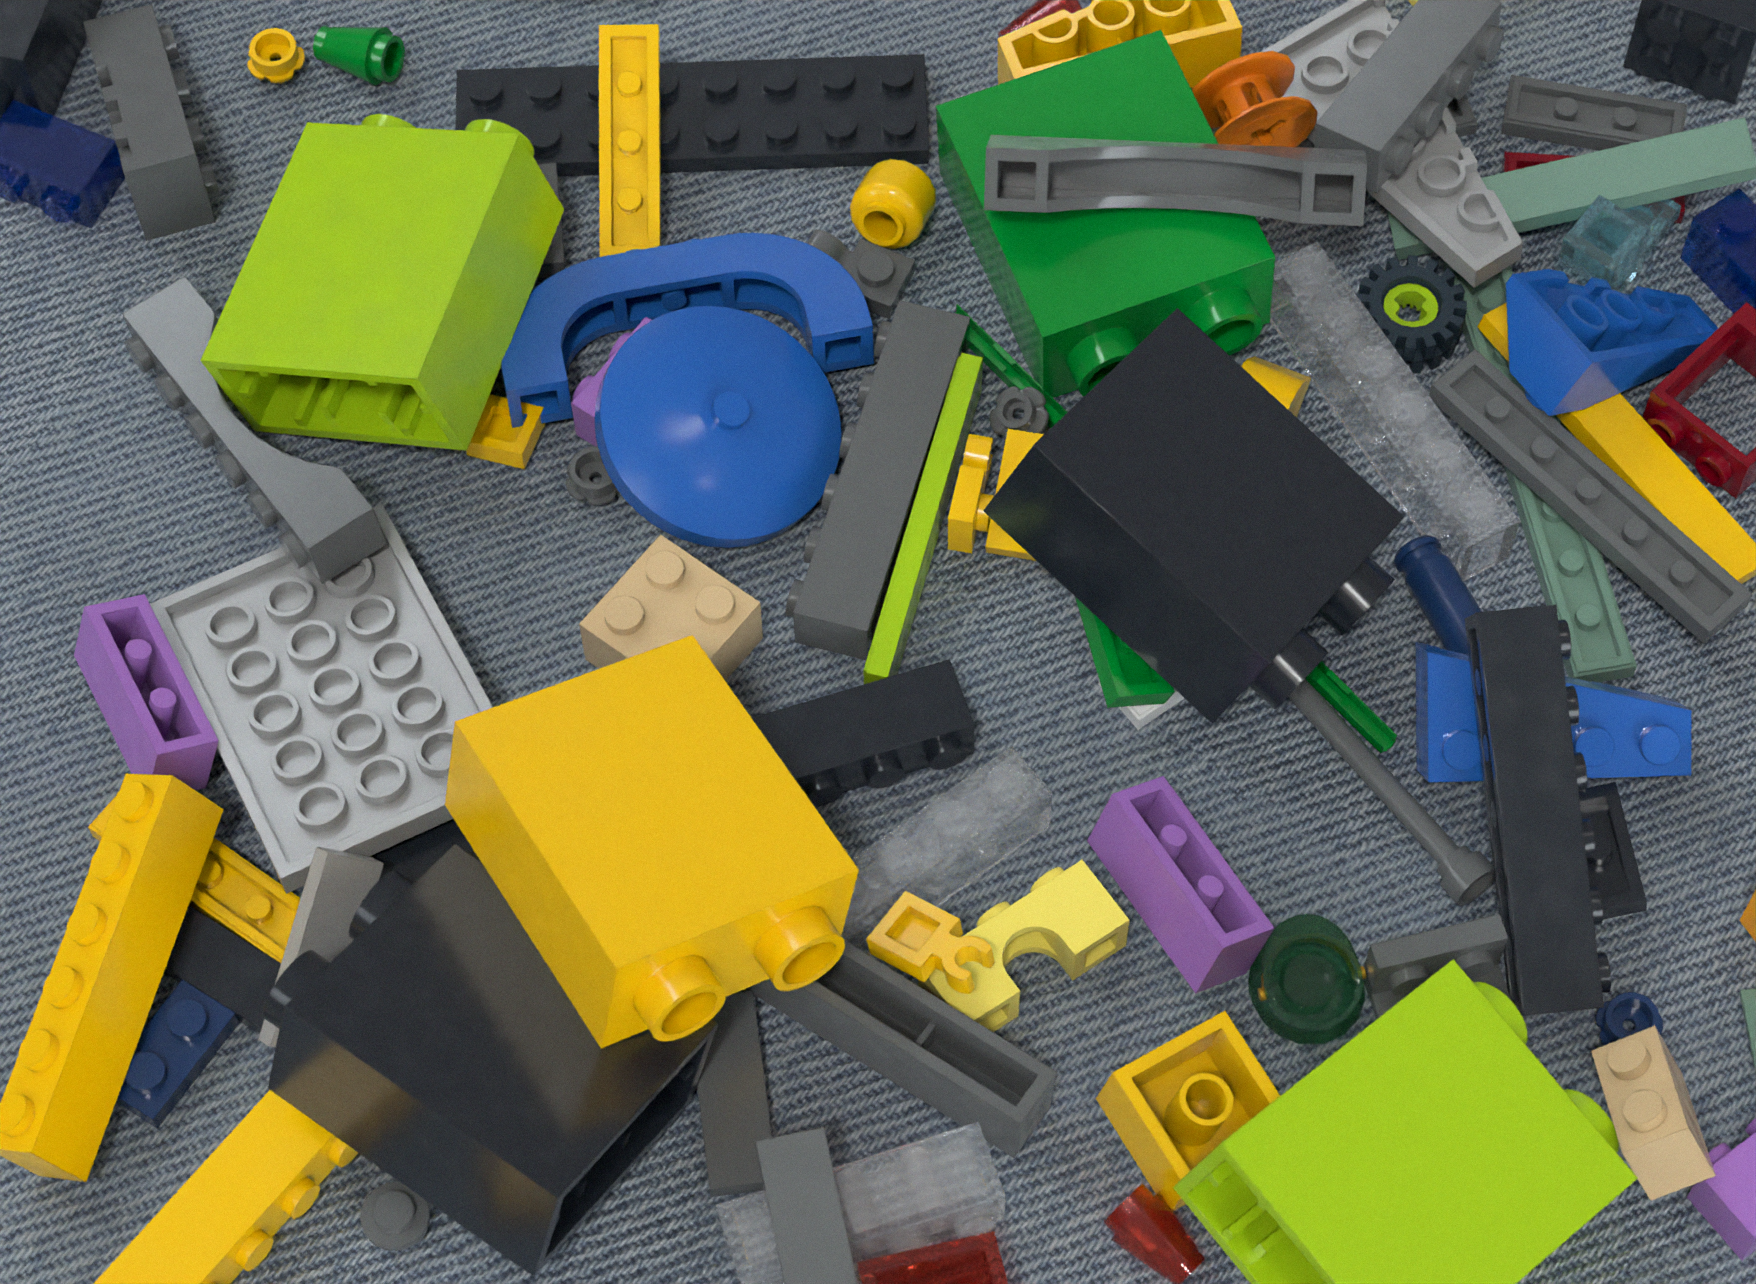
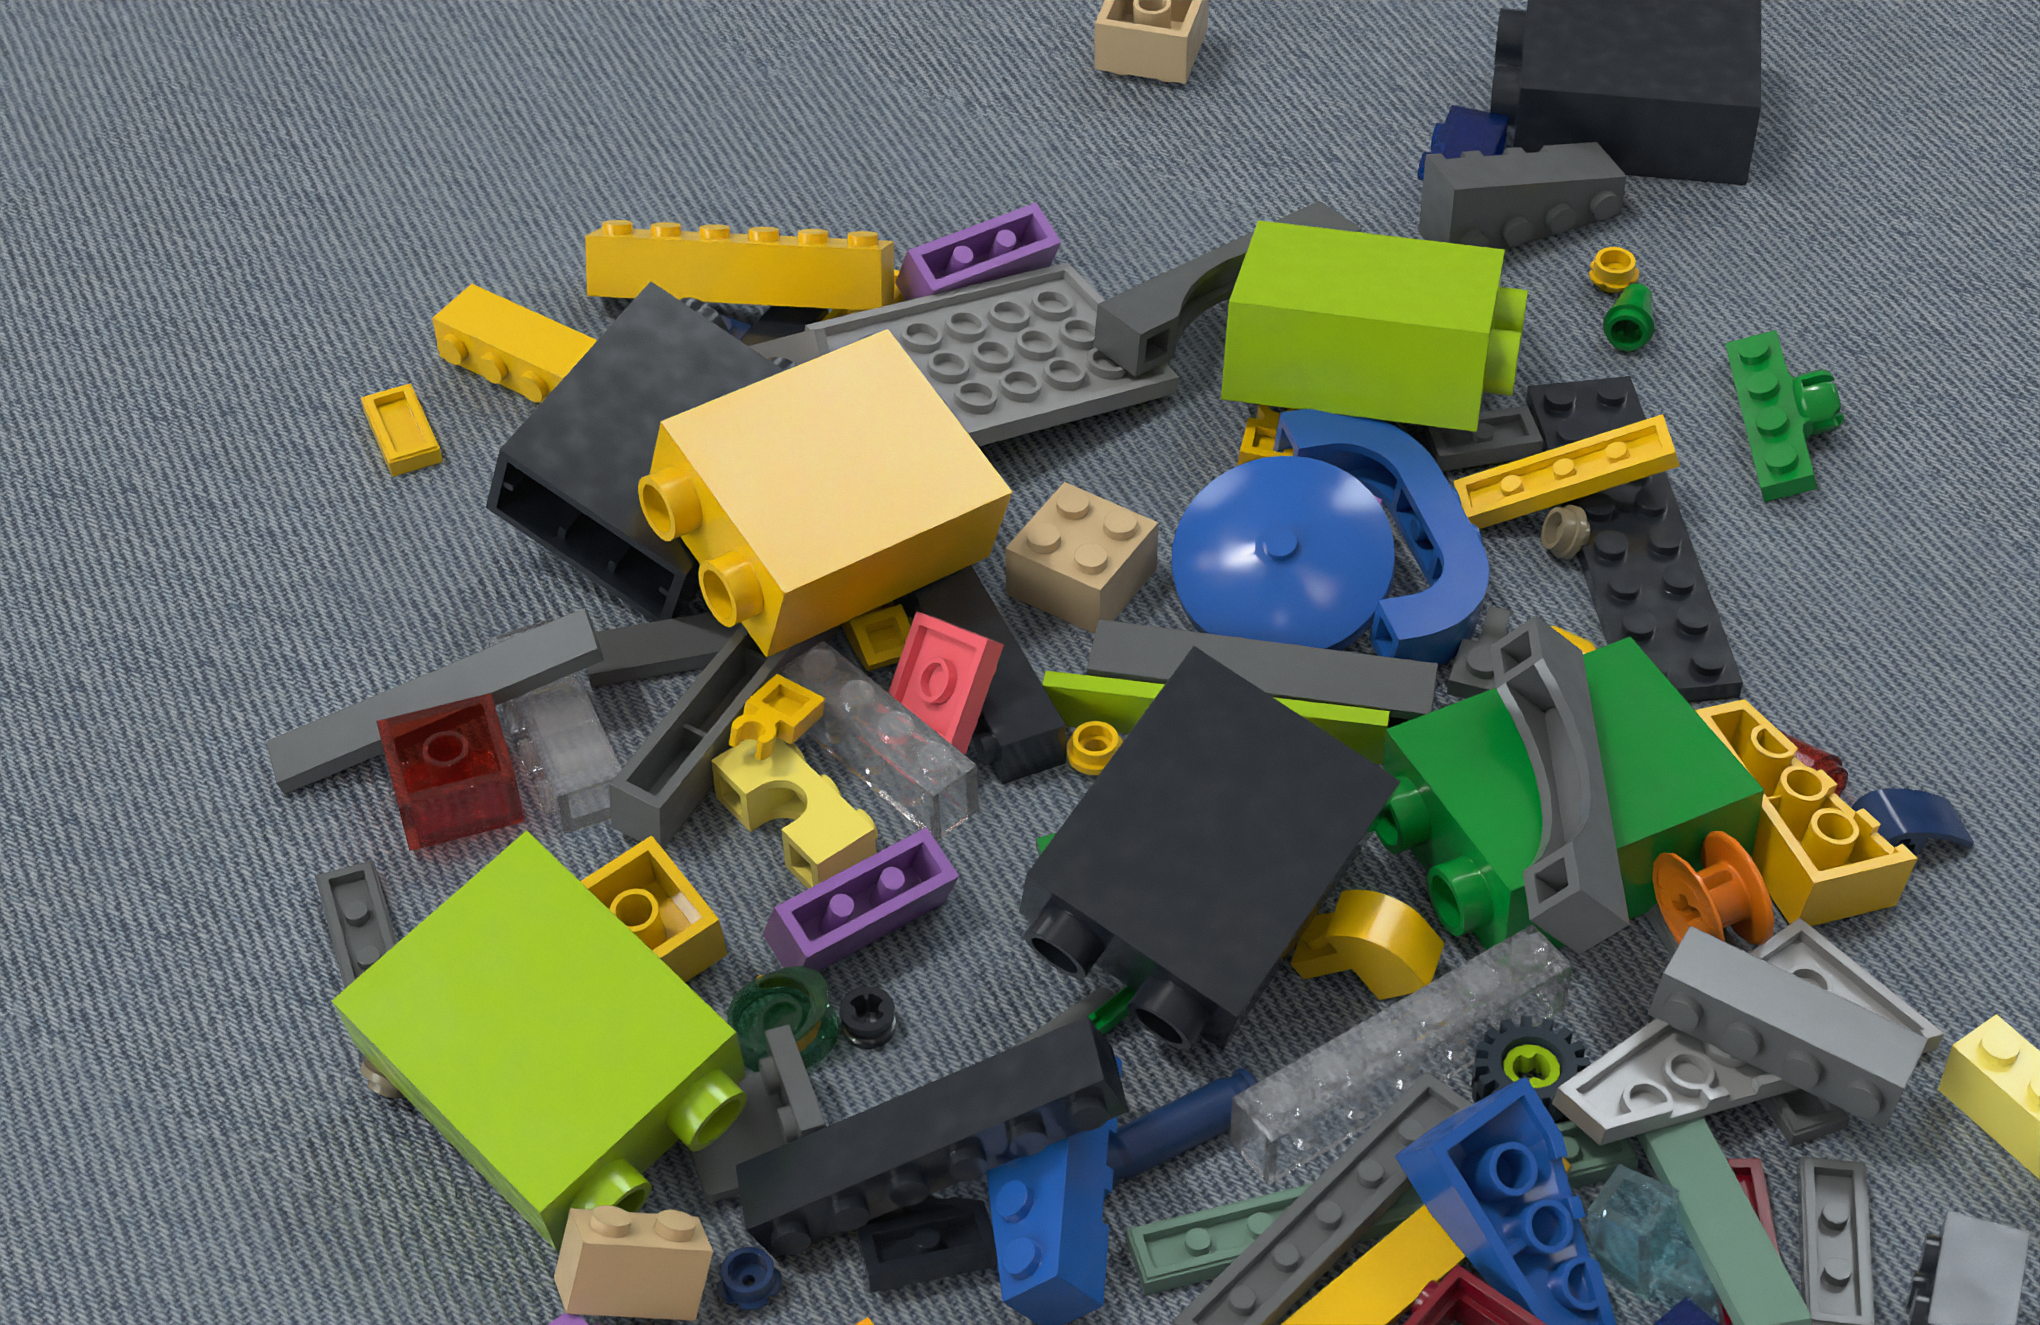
camera: 85 degrees right, 15 degrees down
(693, 165) = (1565, 531): none -> dark tan plate
(876, 769) = (945, 676): none -> coral plate
(950, 634) = (1092, 747): none -> yellow plate
(1298, 880) = (867, 1034): none -> black bush

